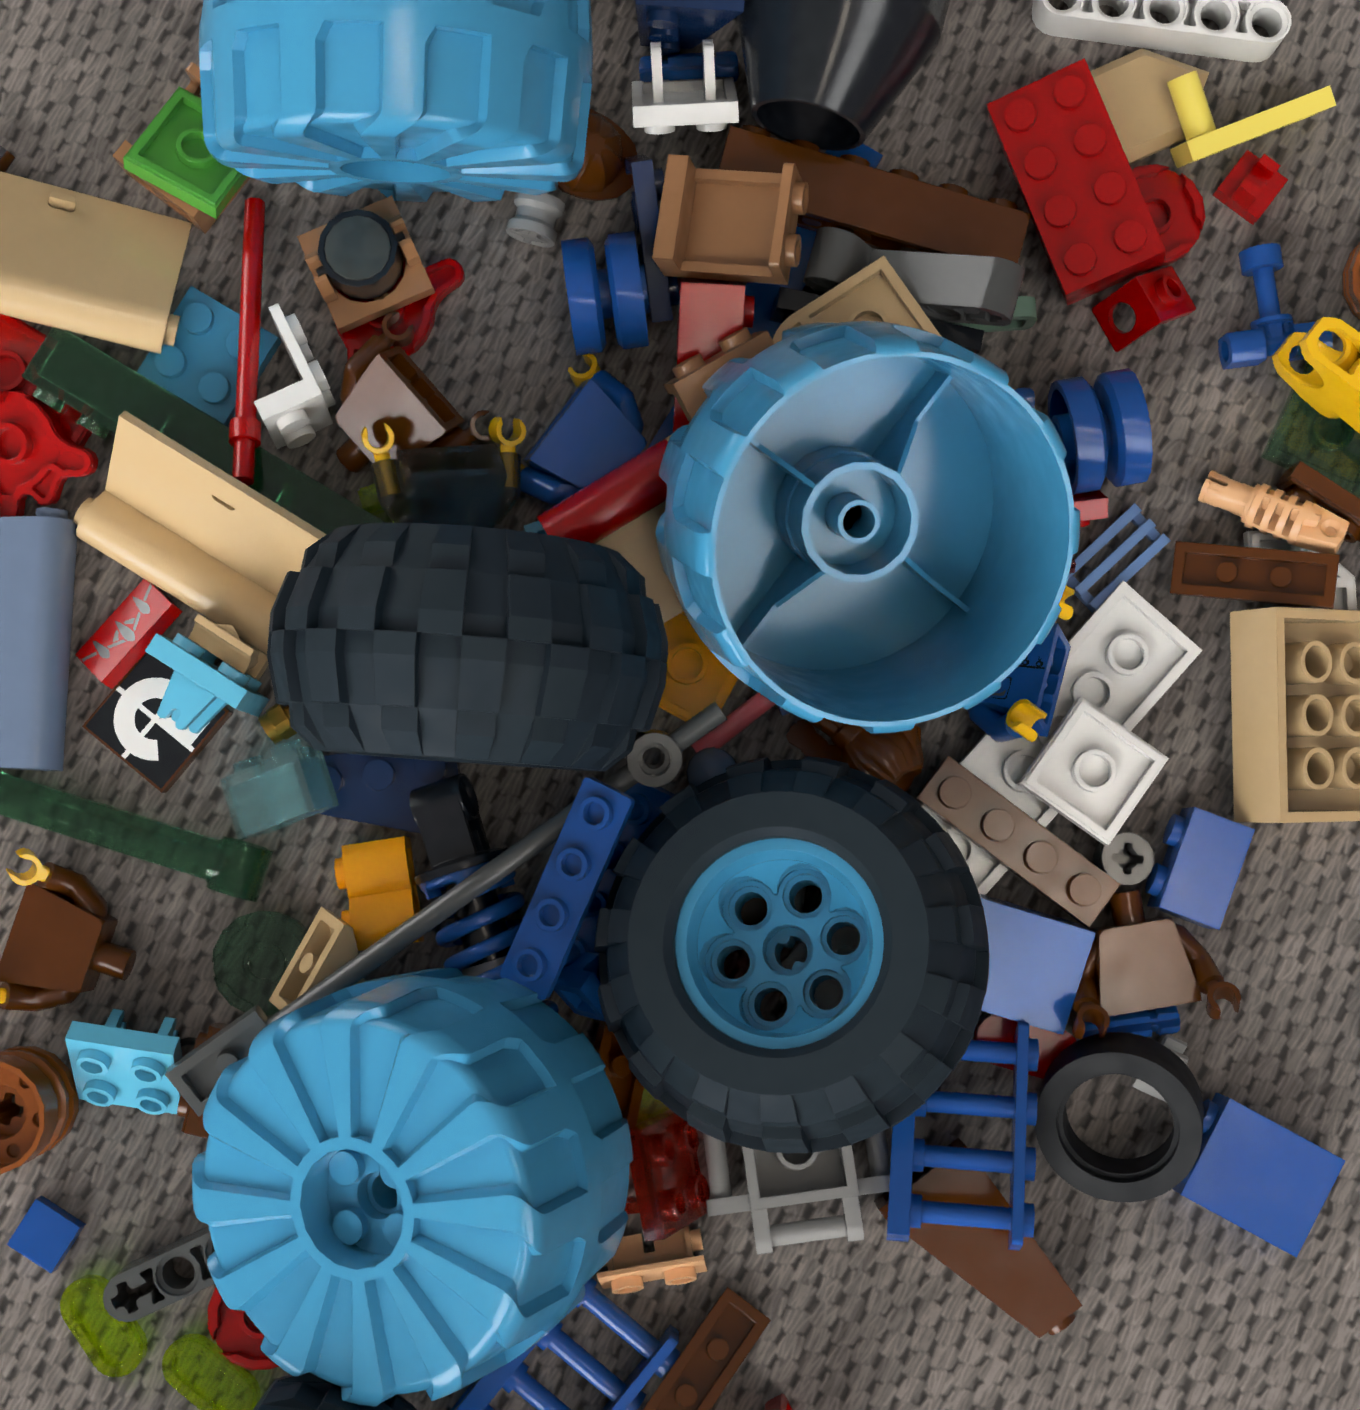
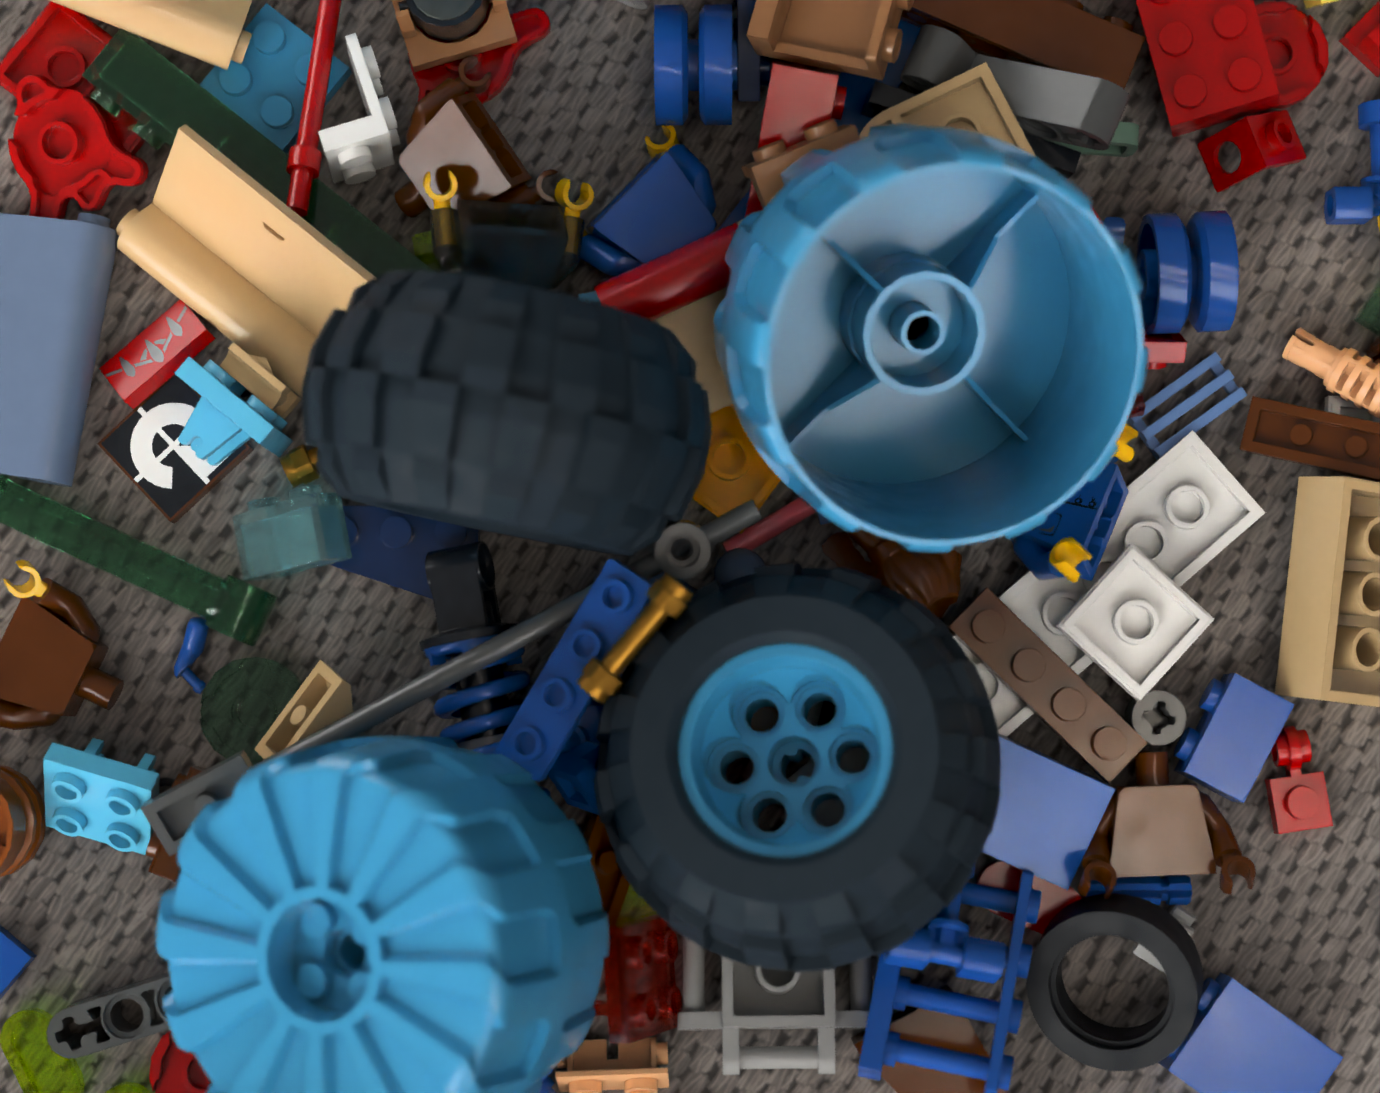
camera: 10 degrees right, 0 degrees up
(197, 911) = (191, 649): none -> blue piece
(378, 887) = (382, 647): light orange brick -> none
(593, 893) = (602, 677): none -> pearl gold bar
(959, 1104) = (948, 943): none -> blue bar
(1268, 917) = (1299, 798): none -> red plate

